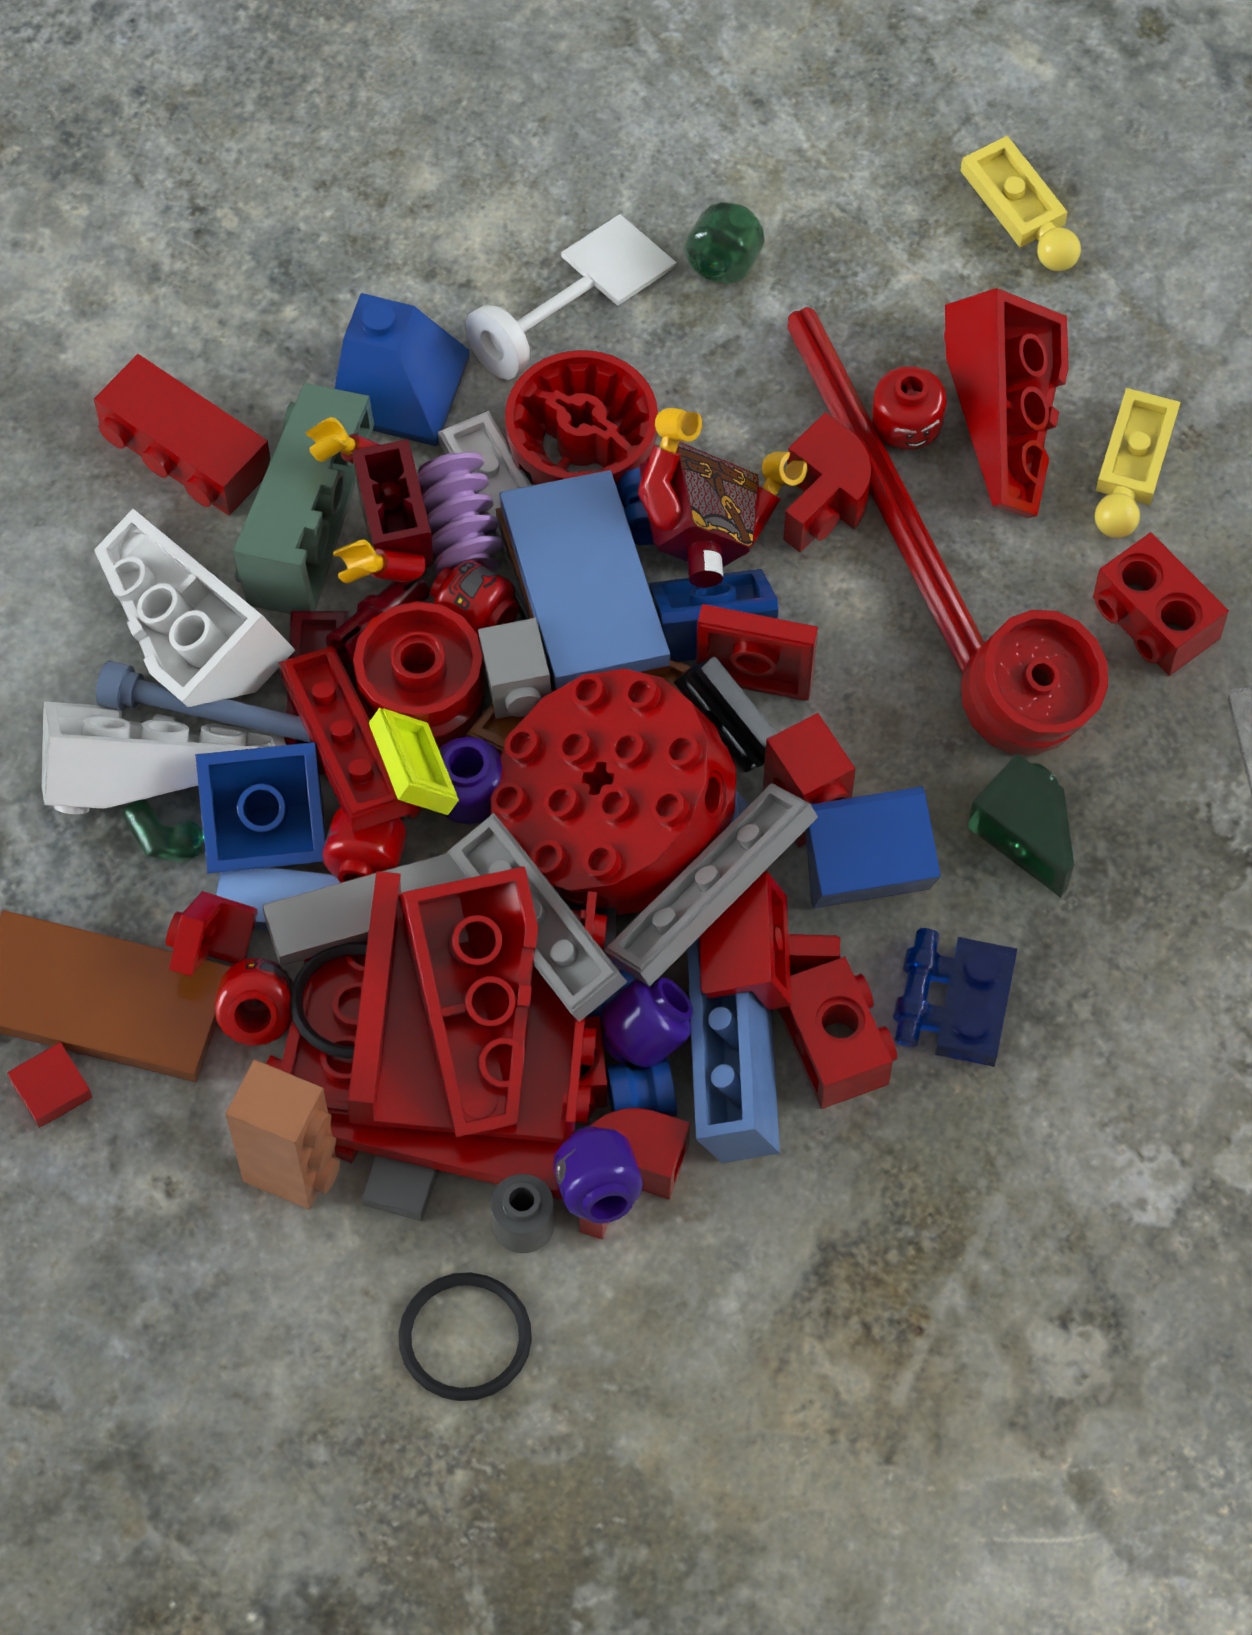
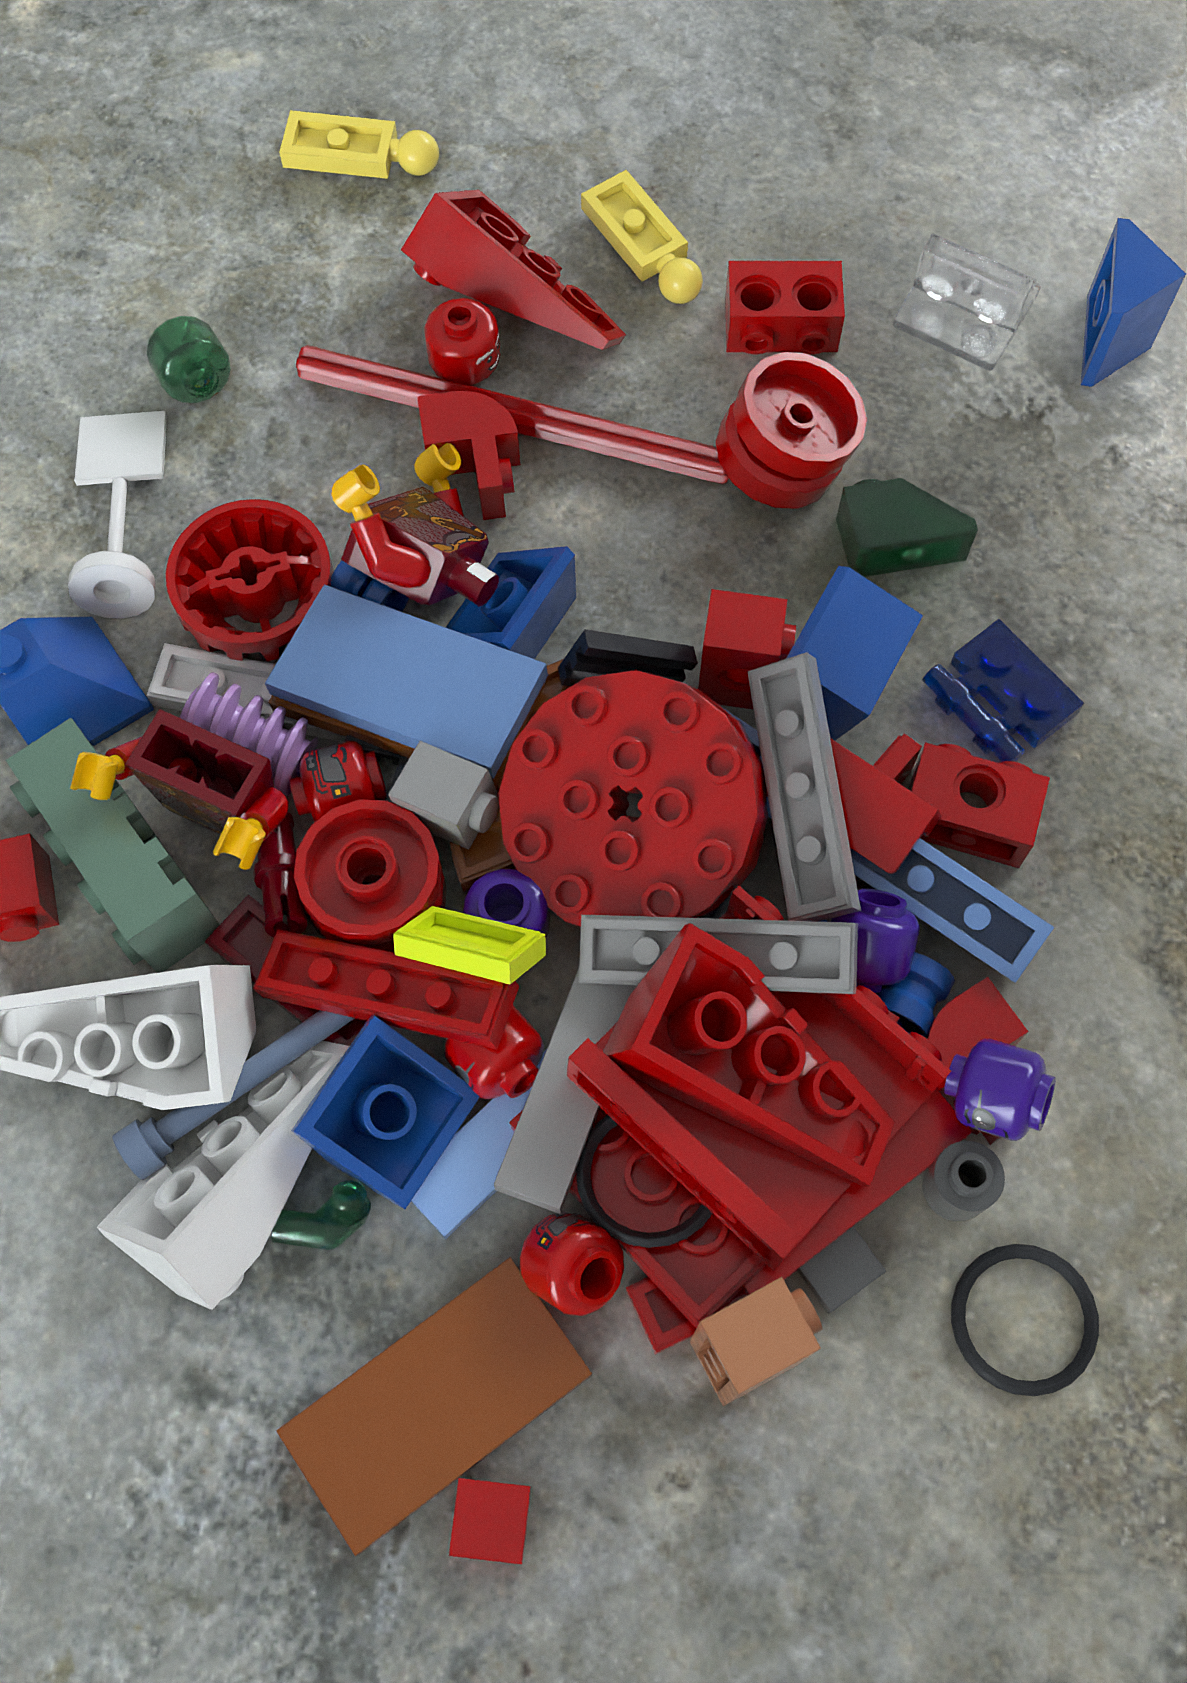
camera: 50 degrees left, 5 degrees up
(210, 928) = (466, 1242): red bracket -> none
(759, 650) = (592, 597): red tile -> none

